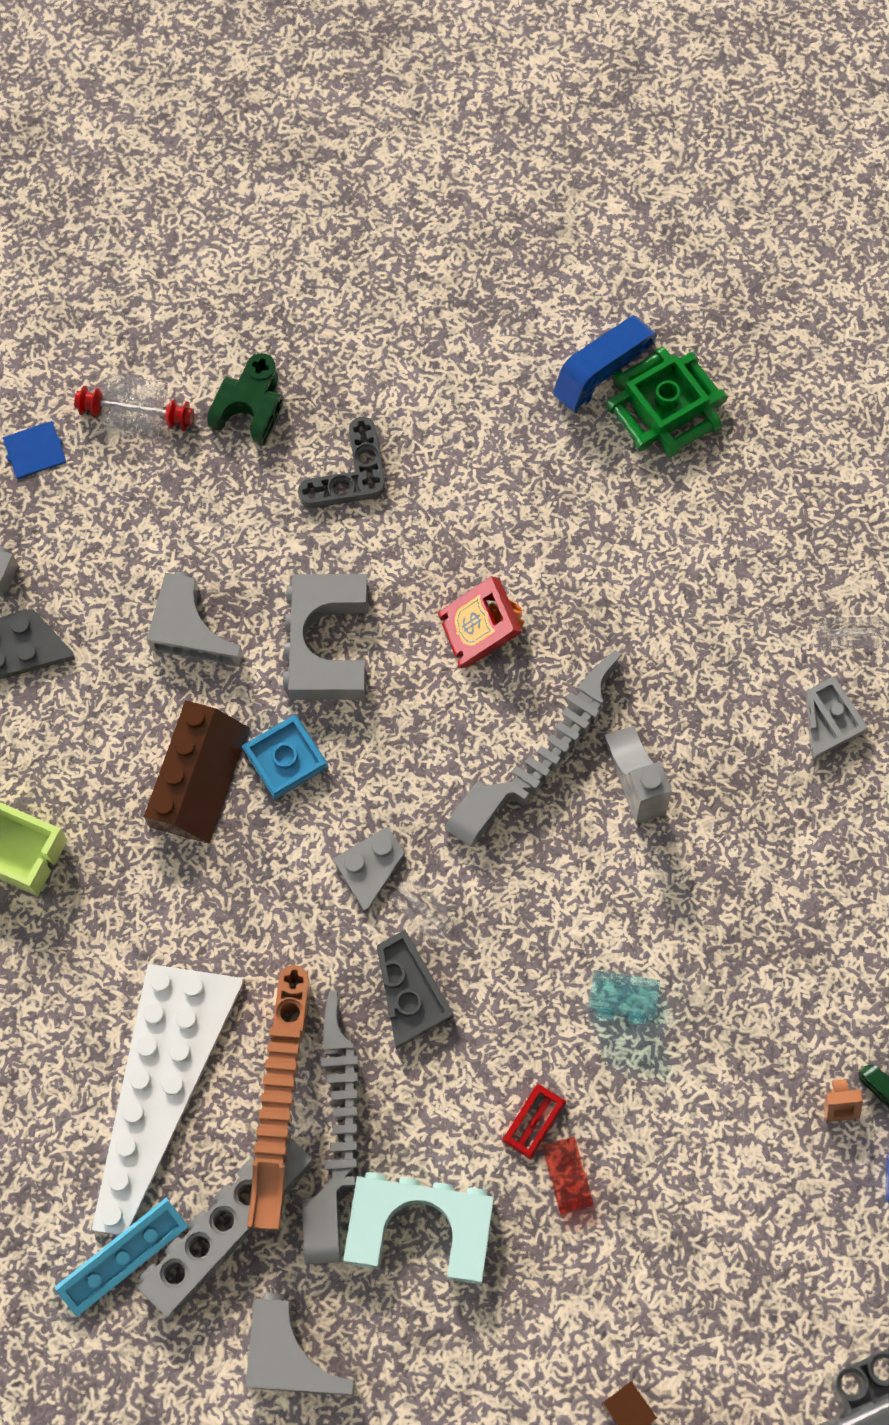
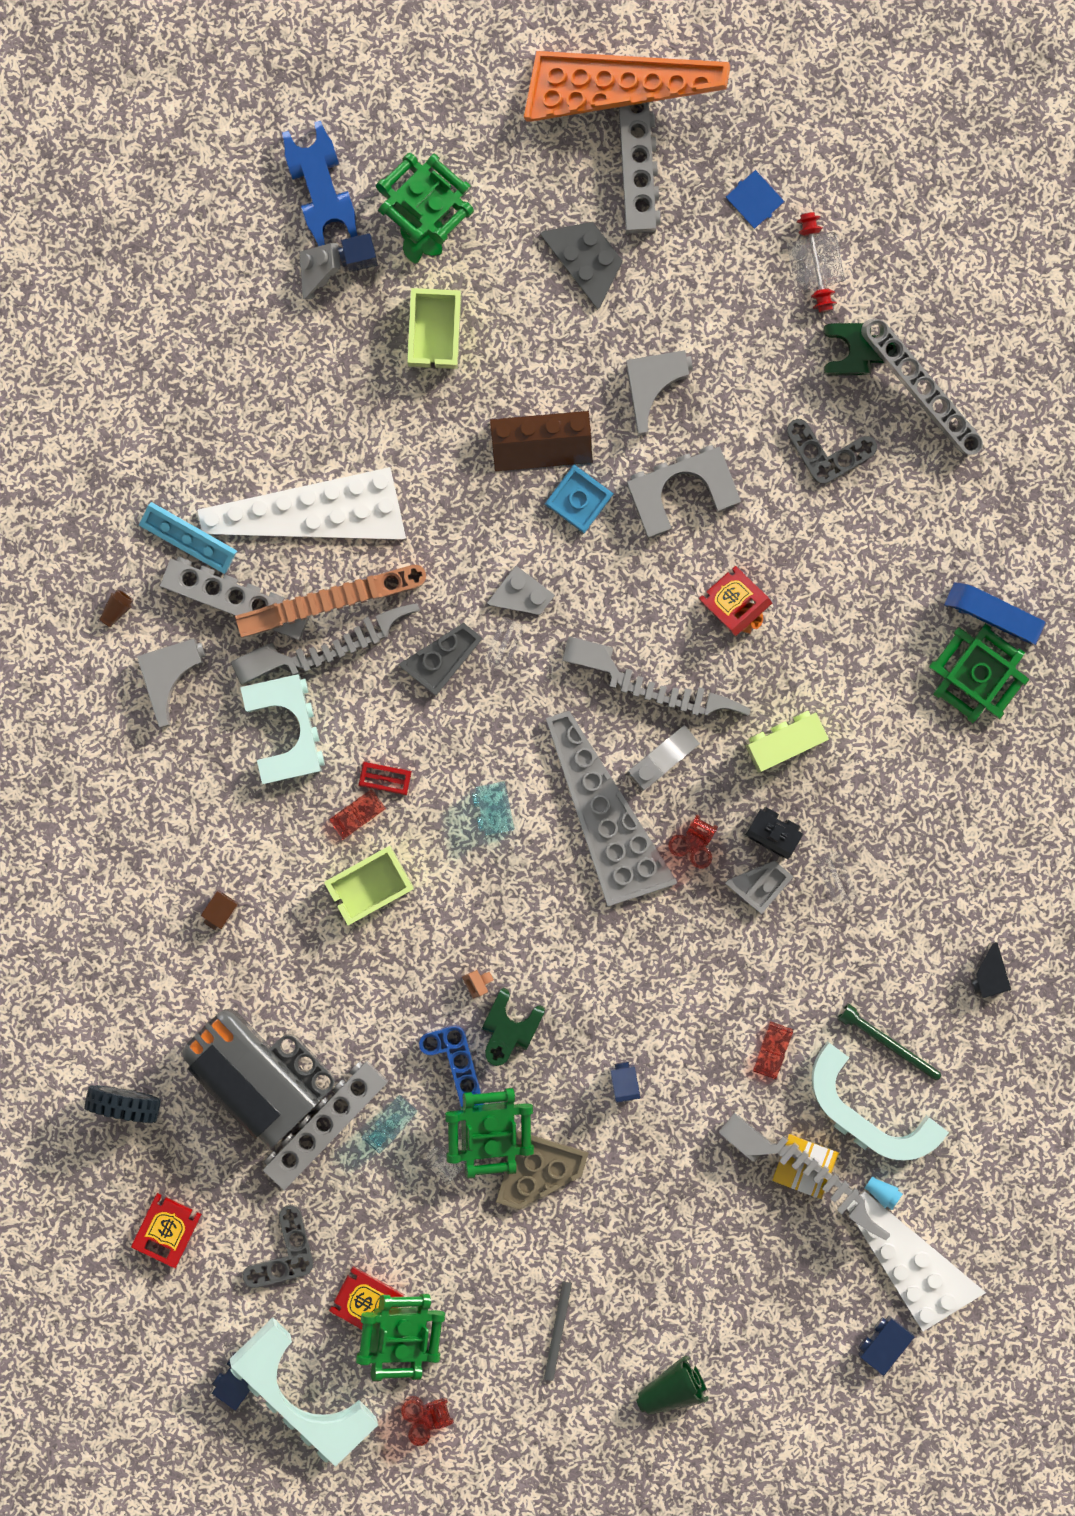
camera: 65 degrees right, 20 degrees up
(170, 1393) = (115, 607): none -> reddish brown cone
(310, 352) = (911, 382): none -> light grey beam
(667, 1191) = (369, 885): none -> yellowish green piece
(668, 623) = (786, 741): none -> yellowish green piece
(721, 864) = (617, 842): none -> light grey wing
(749, 771) = (695, 841): none -> clear red piece
(774, 675) = (773, 833): none -> black hinge

